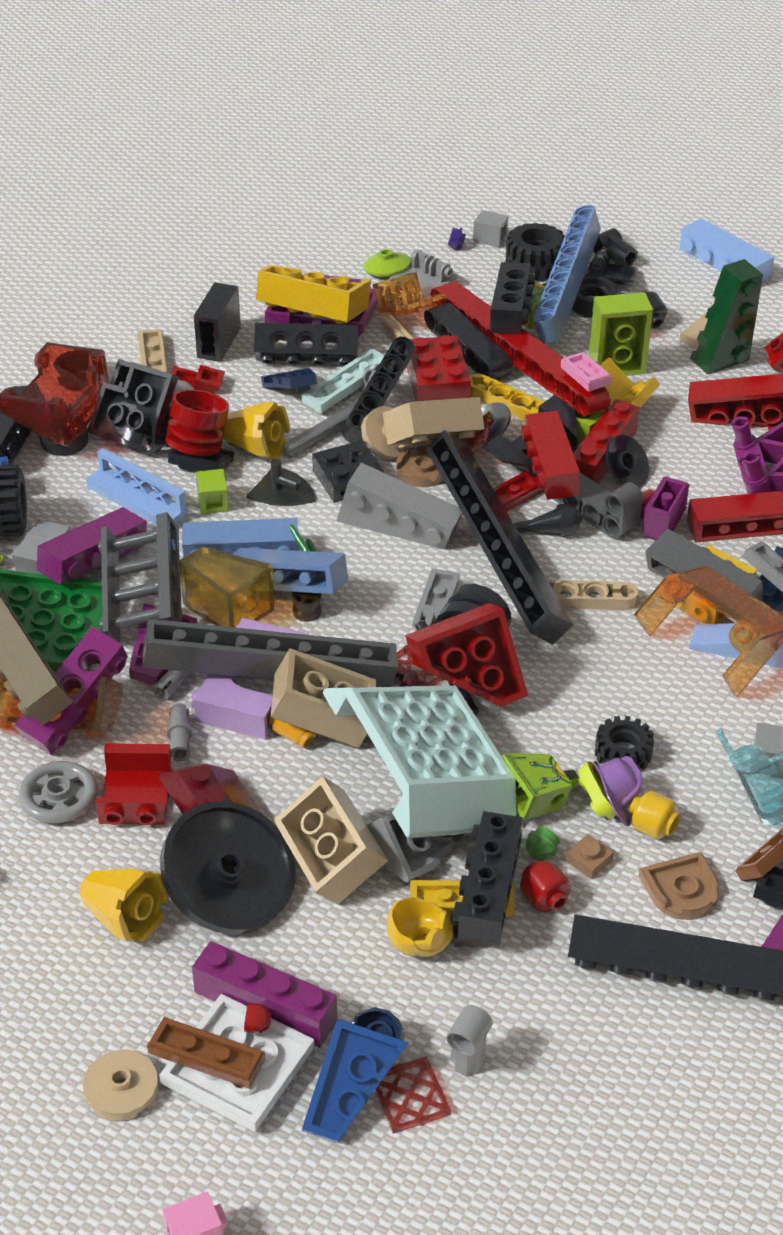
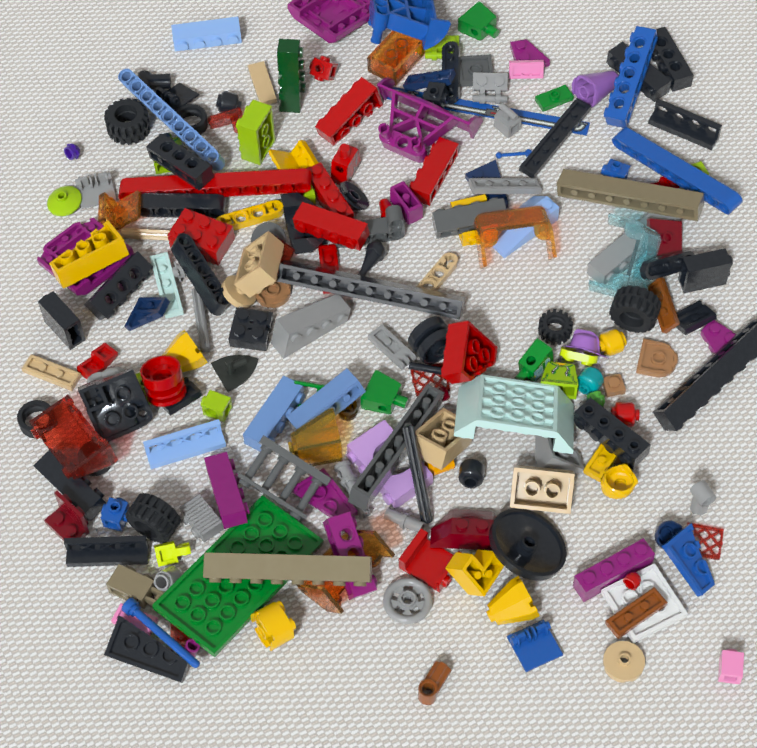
camera: 55 degrees left, 15 degrees up
(77, 962) = (535, 645): none -> blue hinge
(131, 829) = (476, 571): none -> yellow brick
(243, 695) = (417, 473): none -> black axle
(304, 762) = (471, 473): none -> black head
(353, 616) = (383, 394): none -> green torso
(490, 228) = (81, 128): light grey panel -> none
(537, 735) = (534, 361): none -> green torso
(567, 819) = (590, 380): none -> teal head
(586, 371) = (288, 168): bright pink plate -> none
(666, 431) = (347, 159): none -> red torso
(728, 805) = (635, 309): none -> black tyre

